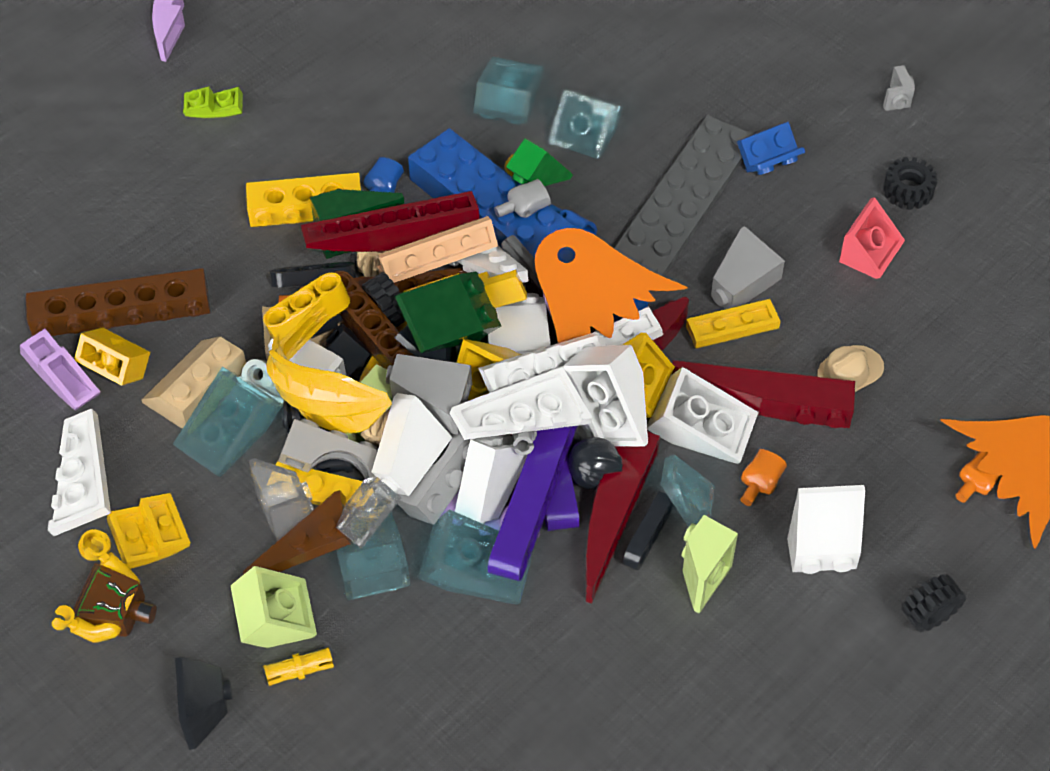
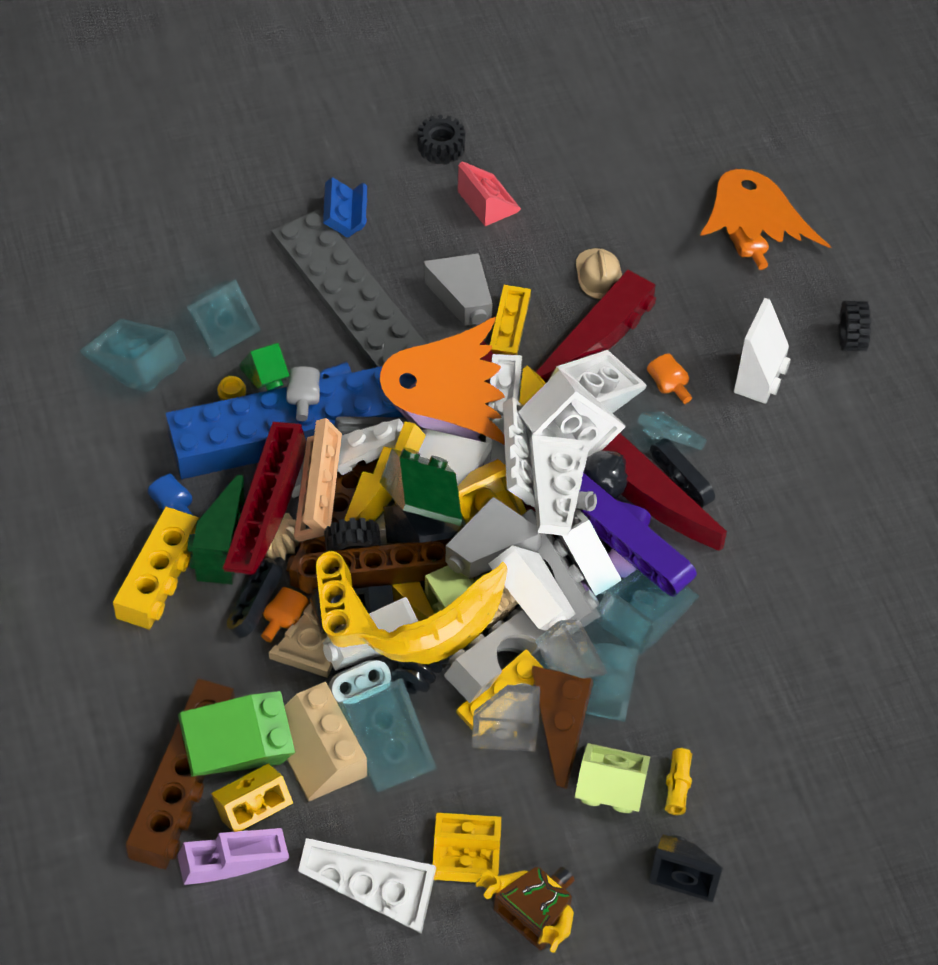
camera: 65 degrees left, 0 degrees up
(85, 541) = (458, 898): yellow plate -> none
(160, 315) = (237, 734): none -> bright green slope
(707, 559) = (744, 446): yellowish green slope -> none
(901, 90) = (339, 92): light grey bracket -> none

